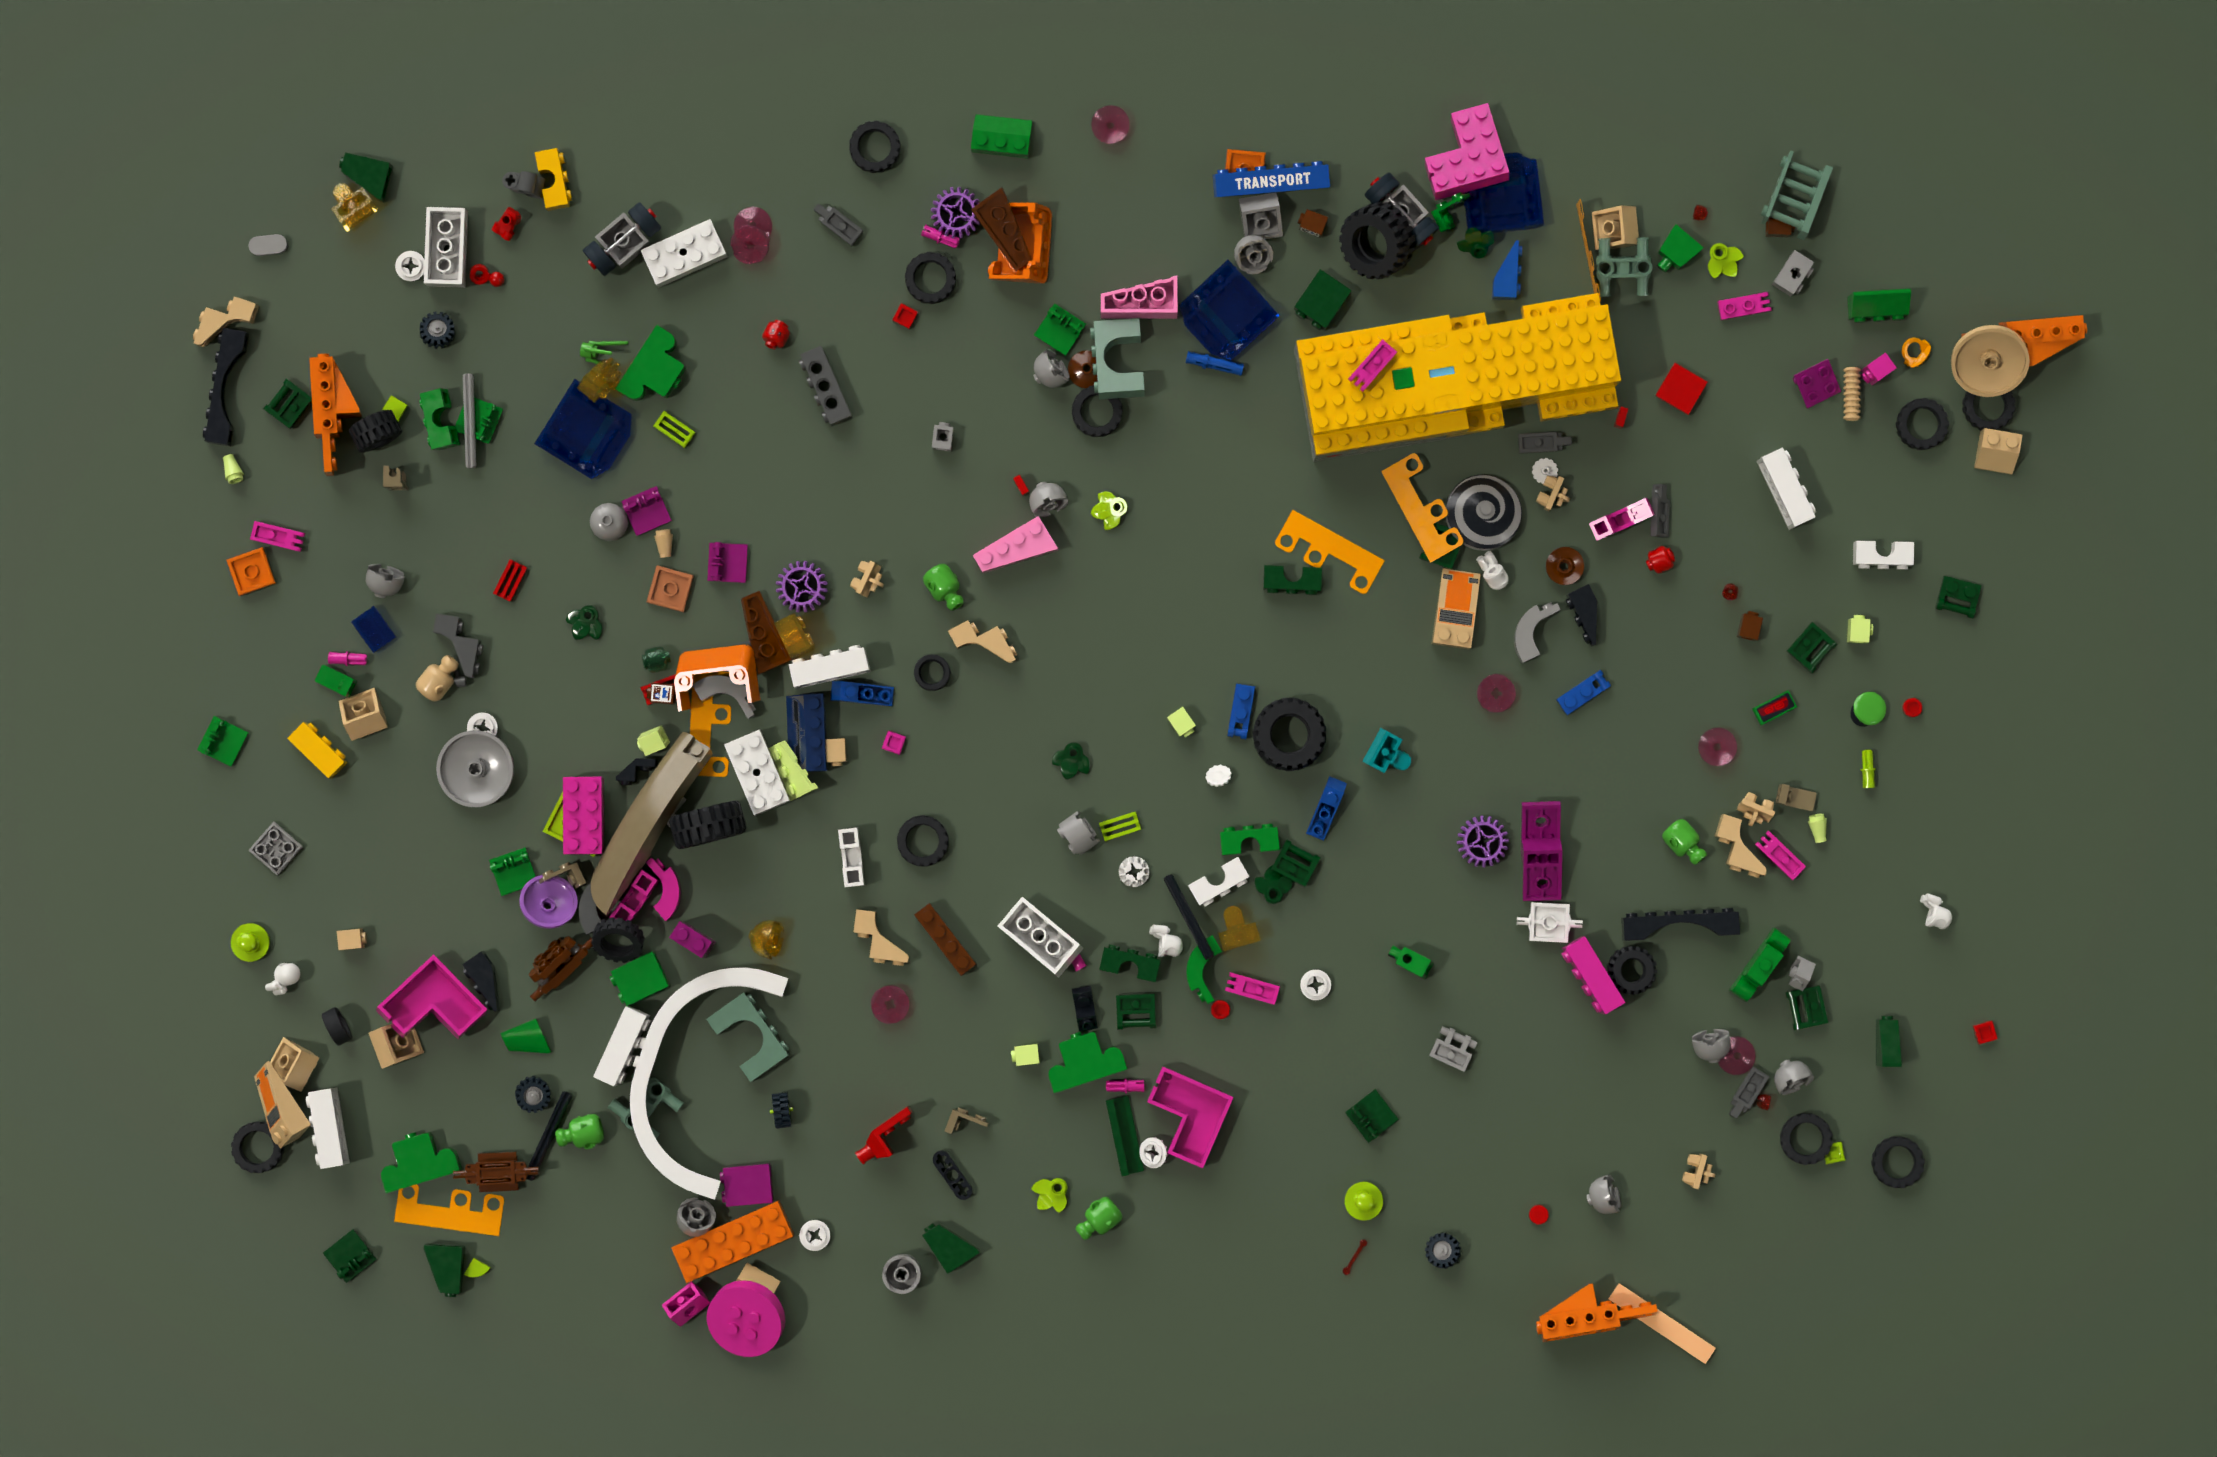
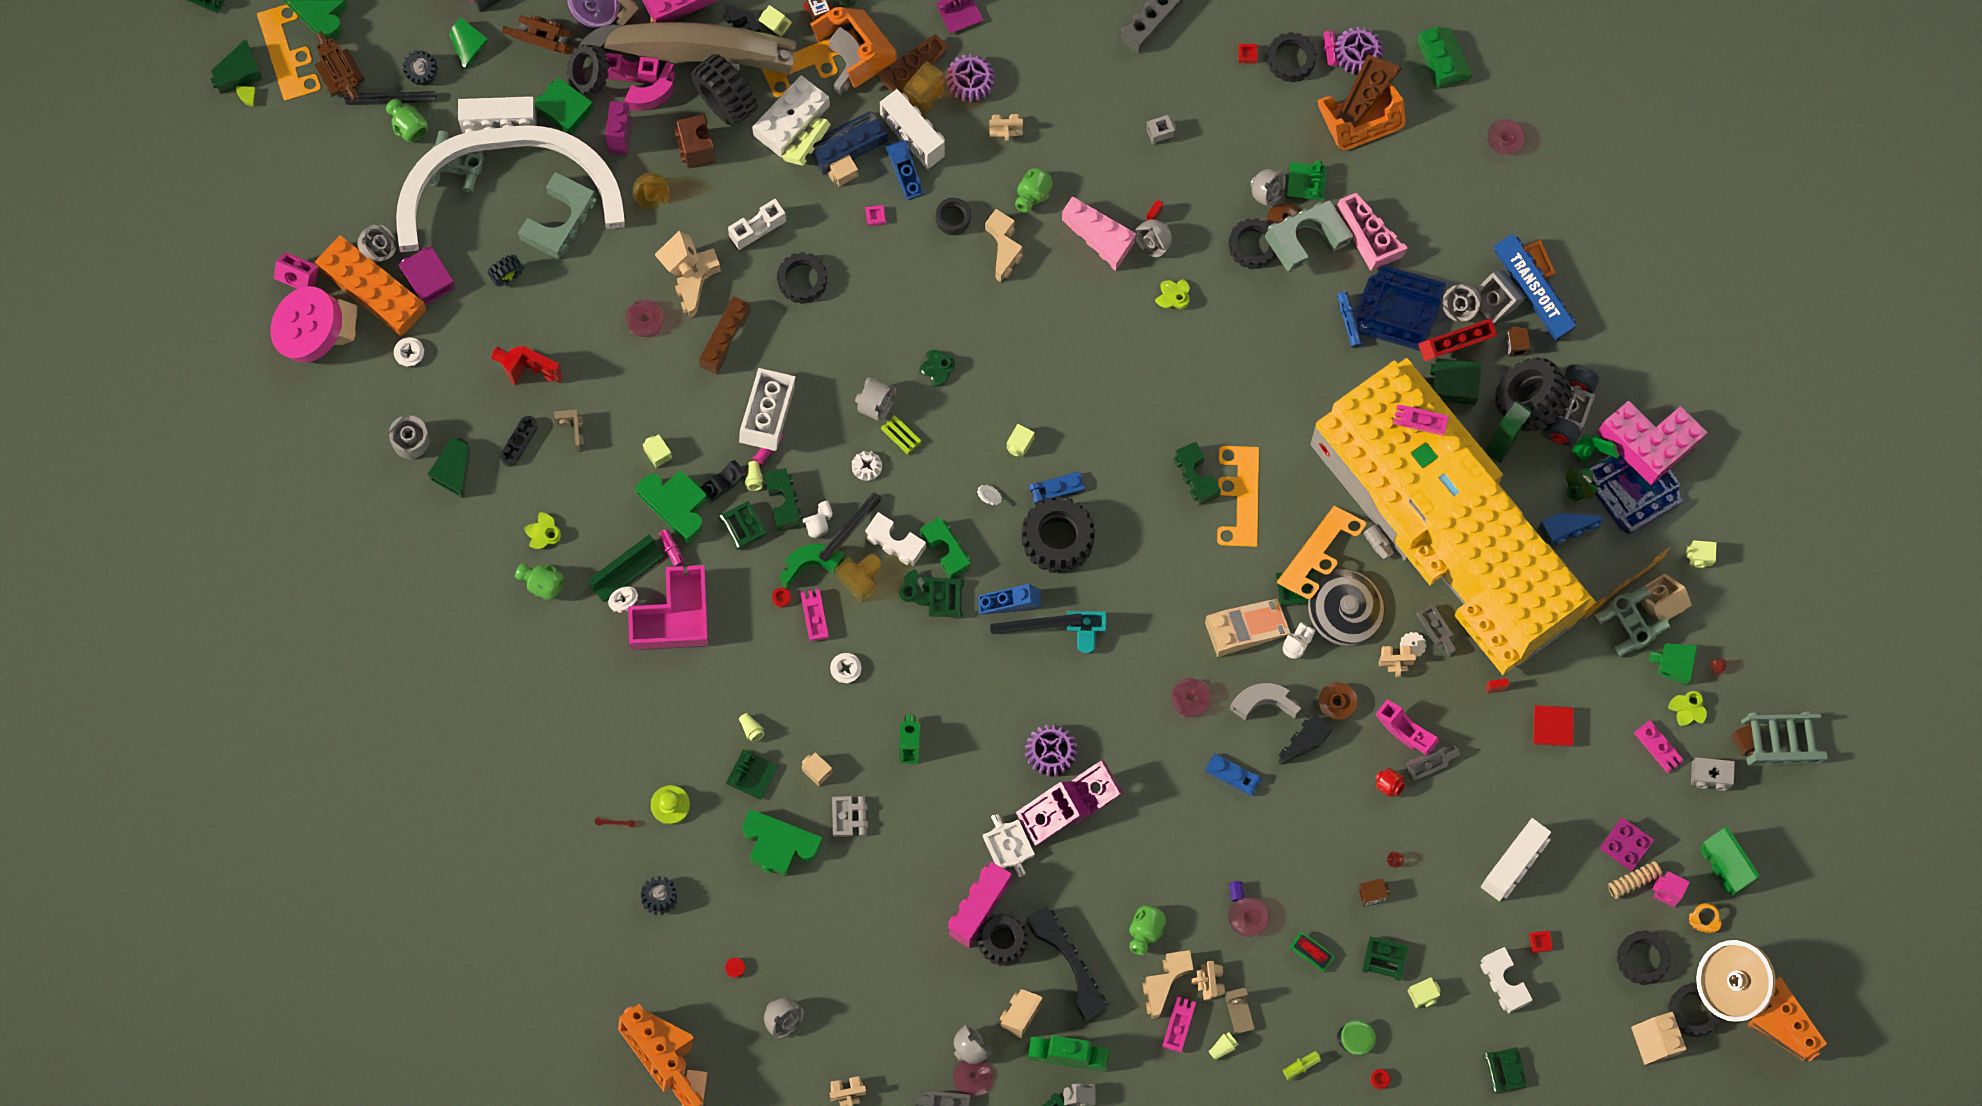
camera: 60 degrees right, 15 degrees down
(732, 879) = (694, 141): none -> copper piece
(849, 945) = (679, 255): none -> tan torso
(1094, 978) = (754, 477): none -> yellowish green cone
(1288, 278) = (1457, 339): none -> red brick
(1330, 1095) = (752, 729): none -> yellowish green cone
(1363, 796) = (1039, 623): none -> black axle
(1396, 1056) = (816, 768): none -> tan brick
(1405, 283) = (1508, 431): none -> dark green beam
(1436, 450) = (1378, 541): none -> light grey hinge
(1447, 1123) = (778, 843): none -> green brick
(1592, 170) = (1701, 553): none -> yellowish green brick
(1689, 744) = (1236, 890): none -> dark purple hinge
(1704, 987) = (1021, 1013): none -> tan slope
(1863, 505) = (1540, 941): none -> red tile

